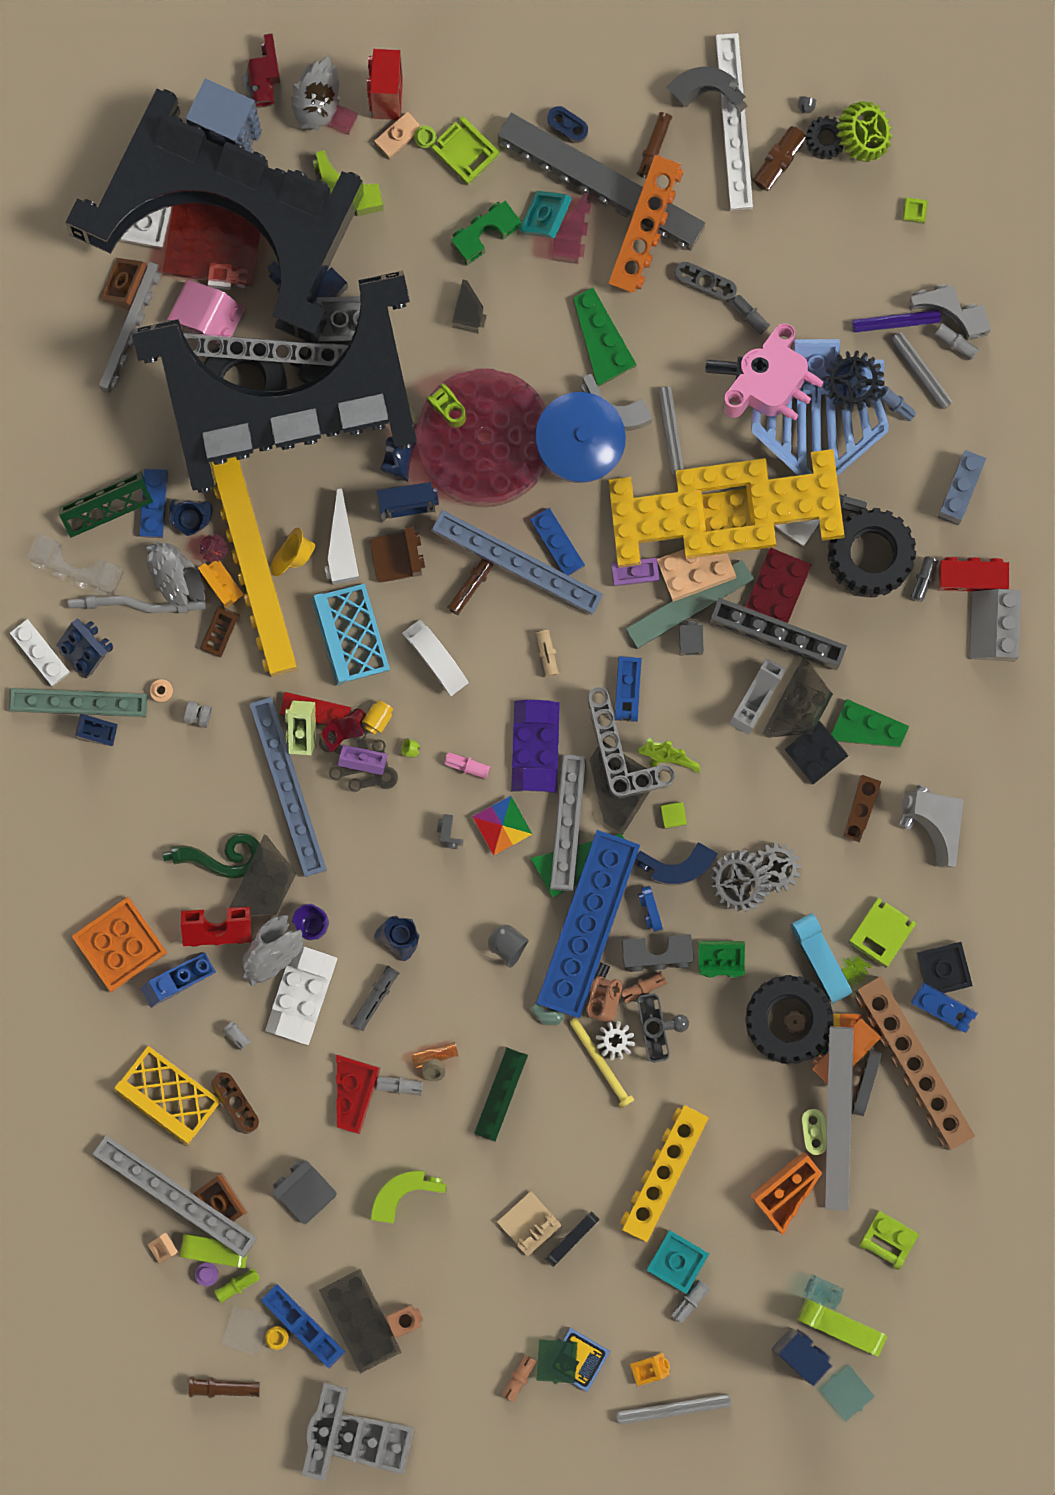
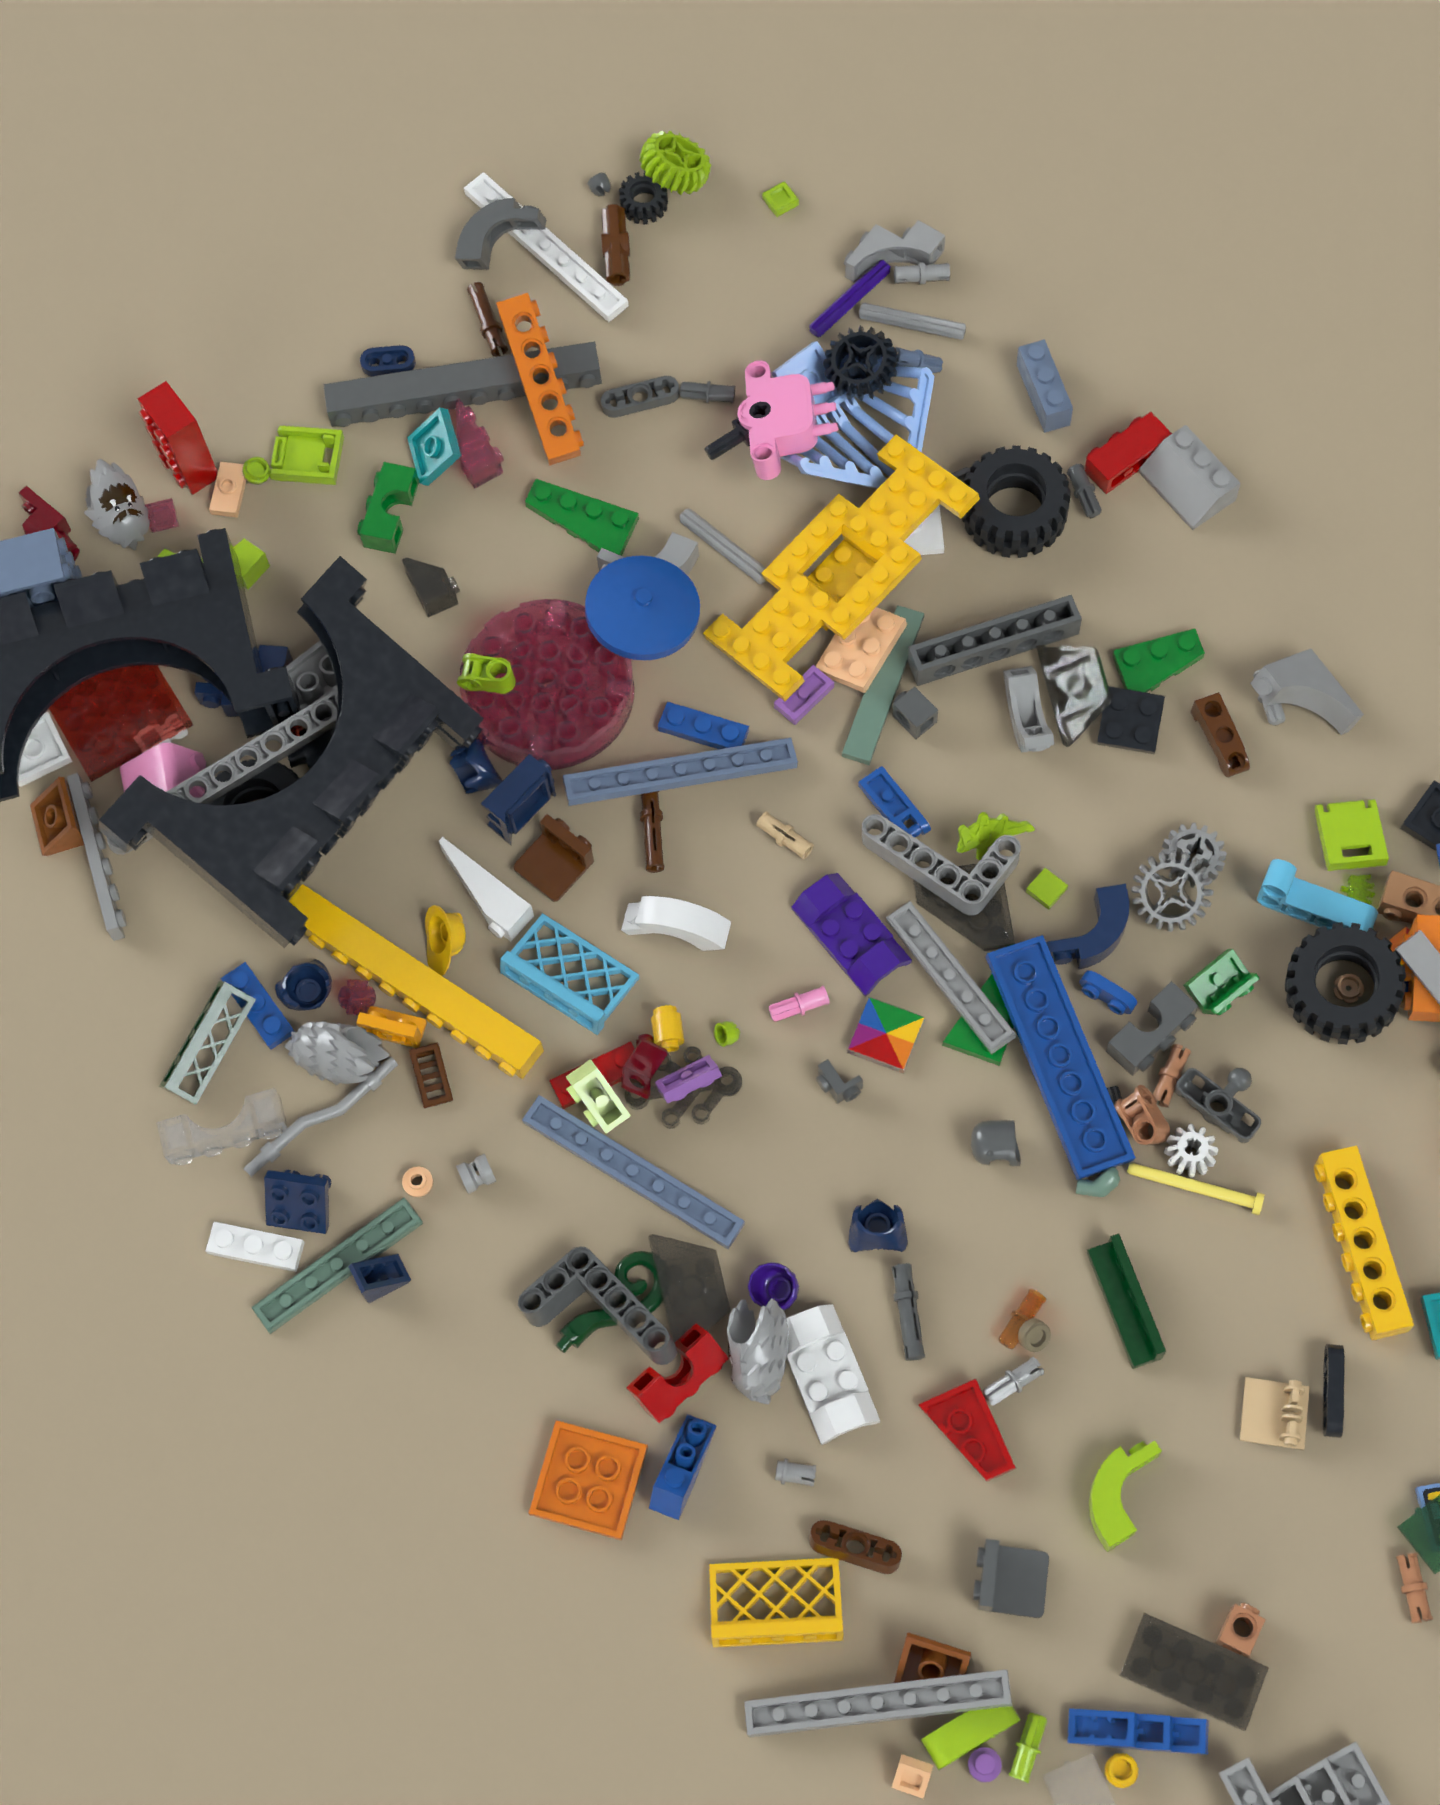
camera: 30 degrees left, 15 degrees down
(210, 851) = (608, 1297): none -> dark grey beam
(778, 585) = (951, 597): dark red plate -> none

